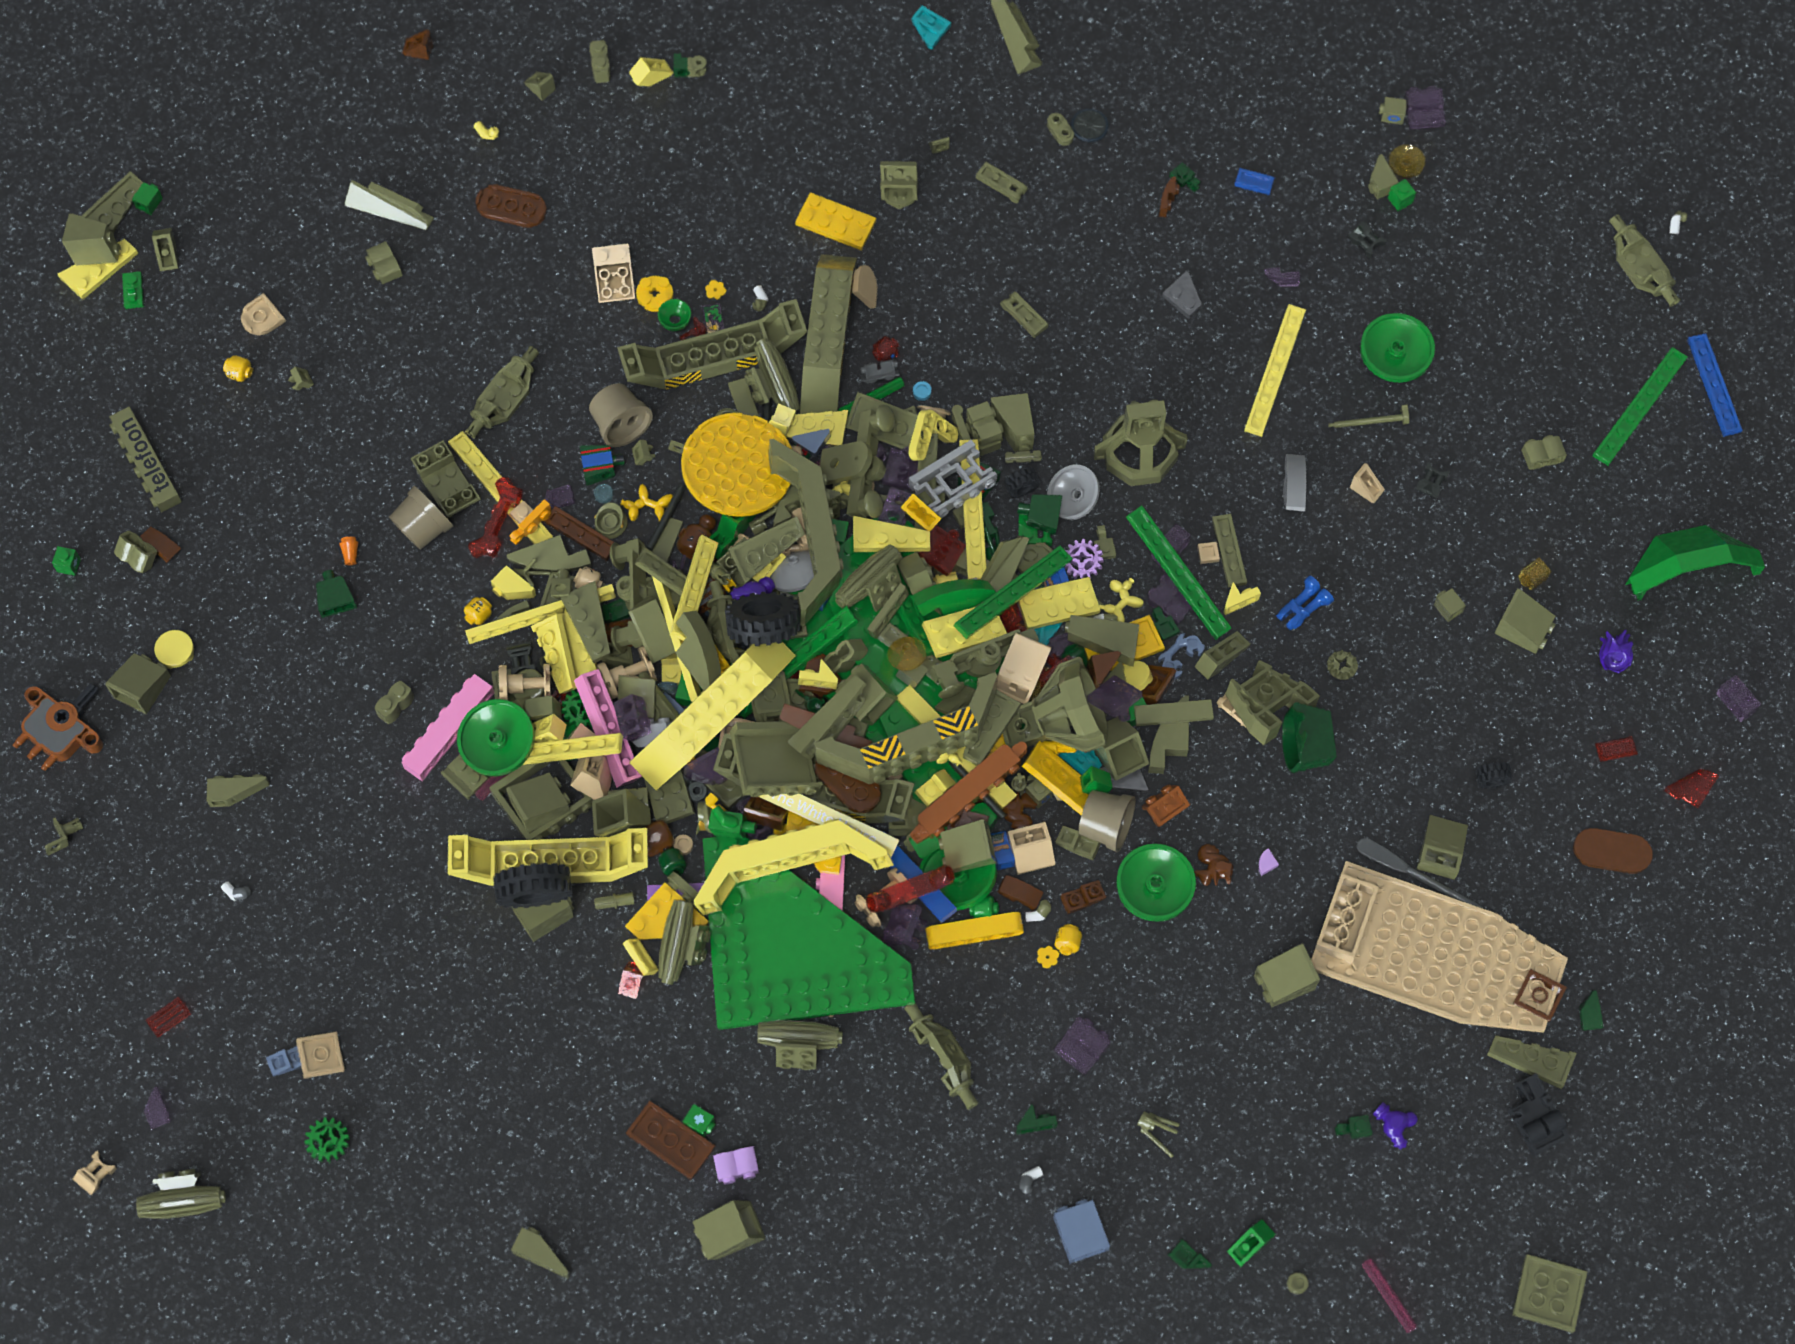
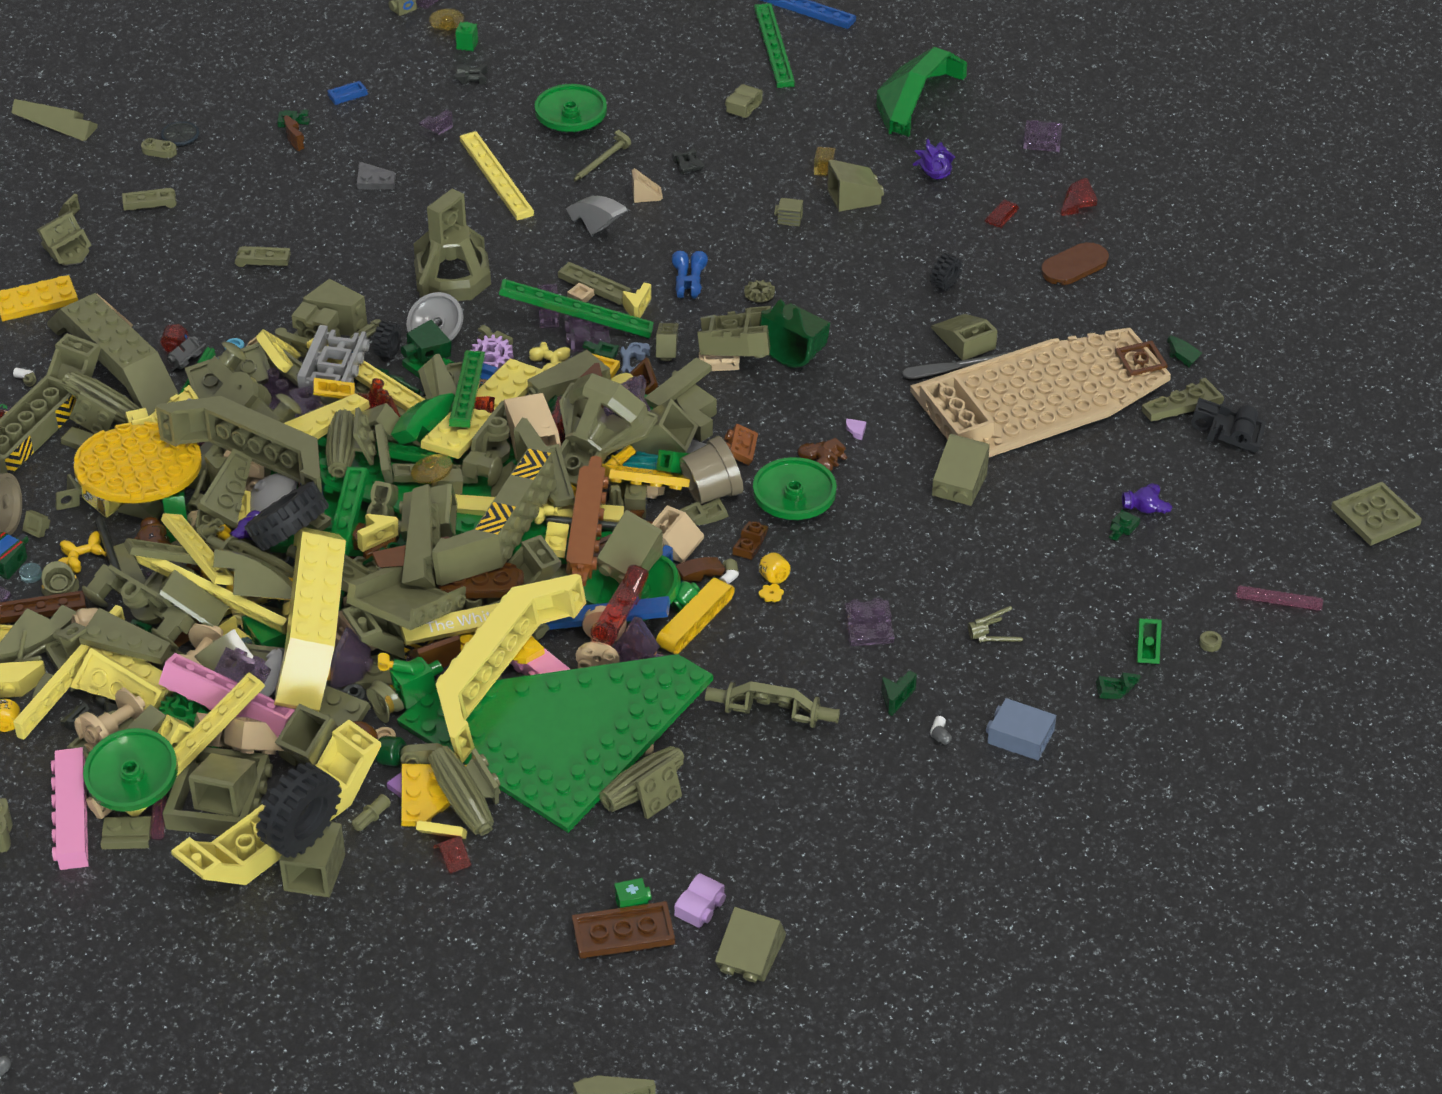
camera: 45 degrees left, 25 degrees down
(1381, 178) = (440, 37): olive slope -> none

